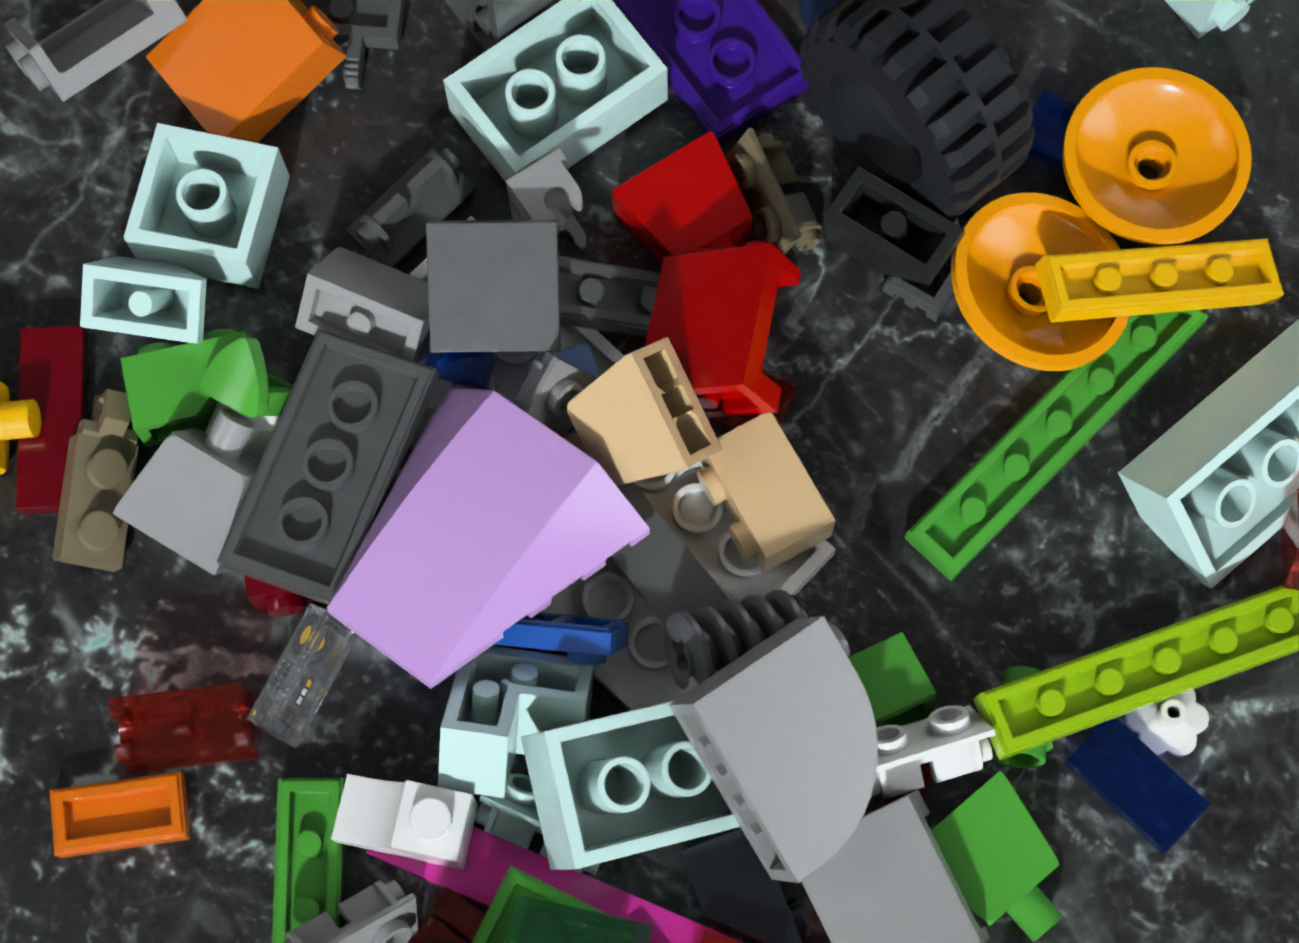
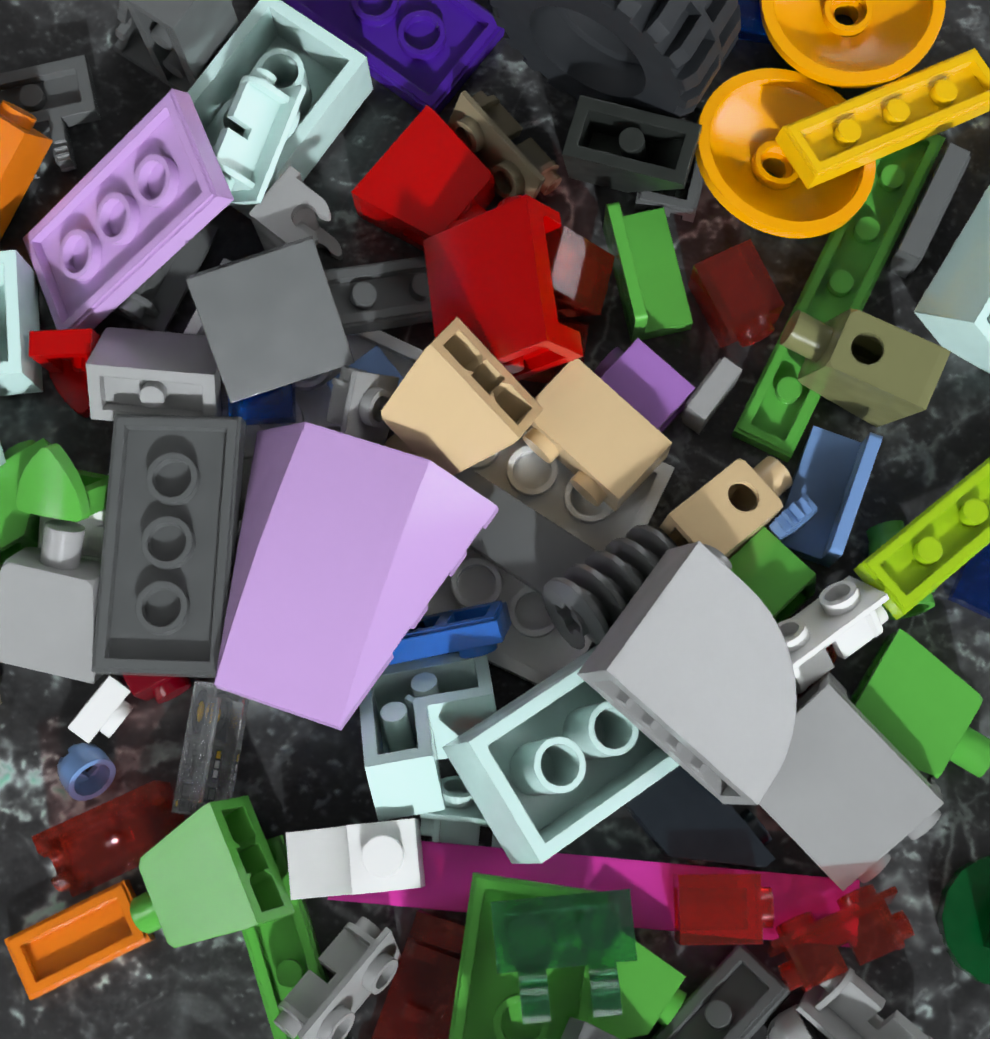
camera: 15 degrees left, 5 degrees up
(166, 663) = (83, 784): none -> medium blue hinge
(215, 604) = (103, 710): none -> white plate
(263, 792) = (210, 877): none -> bright green torso
(289, 262) = (65, 357): none -> red tile
(391, 149) = (128, 215): none -> lavender tile
(518, 135) = (268, 121): none -> light aqua hinge
(800, 334) = (578, 273): none -> clear red brick
(834, 462) = (646, 383): none -> medium lavender brick
(872, 356) = (646, 273): none -> bright green panel
(874, 601) = (730, 506): none -> tan torso
(894, 491) = (710, 394): none -> light grey tile
(933, 633) = (793, 518): none -> medium blue piece
(951, 404) = (736, 295): none -> clear red brick
(973, 622) = (834, 477): none -> medium blue panel
(1048, 506) = (866, 364): none -> olive torso
(1167, 382) = (929, 211): none -> dark grey tile

